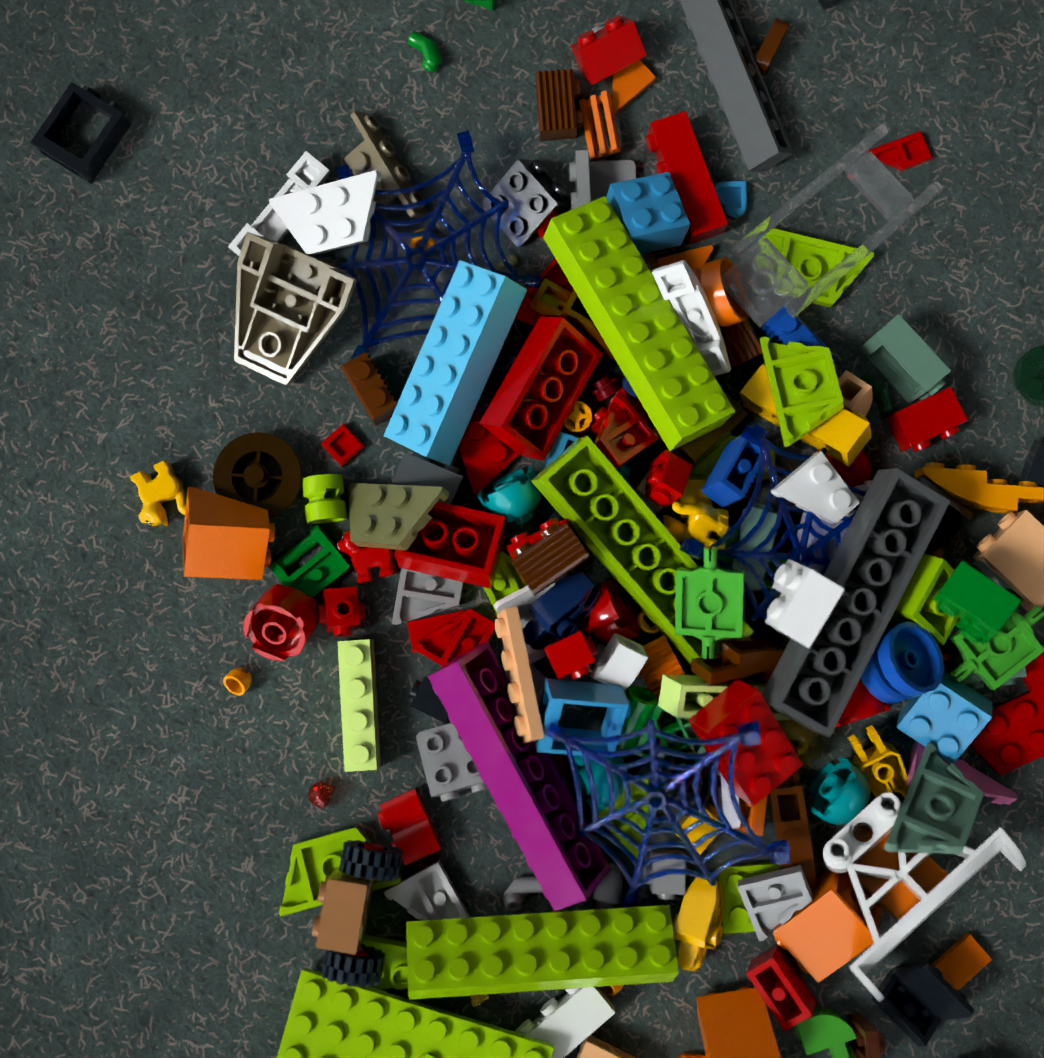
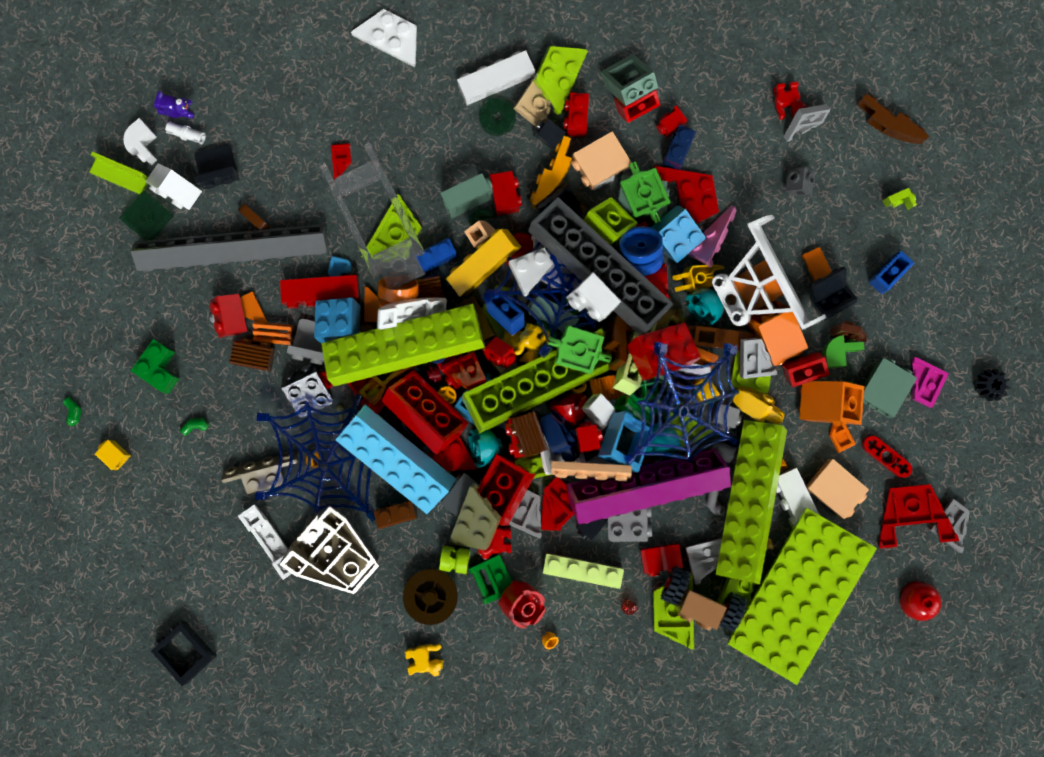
camera: 75 degrees left, 0 degrees up
(225, 537) = (462, 626): orange slope -> none
(330, 213) = (282, 511): white wing -> none
(343, 445) = (424, 540): red tile -> none
(343, 600) = (519, 562): red brick -> none
(801, 386) = (467, 261): lime wing -> none
(936, 809) = (728, 256): sand green wing -> none
(977, 602) = (619, 199): green brick -> none

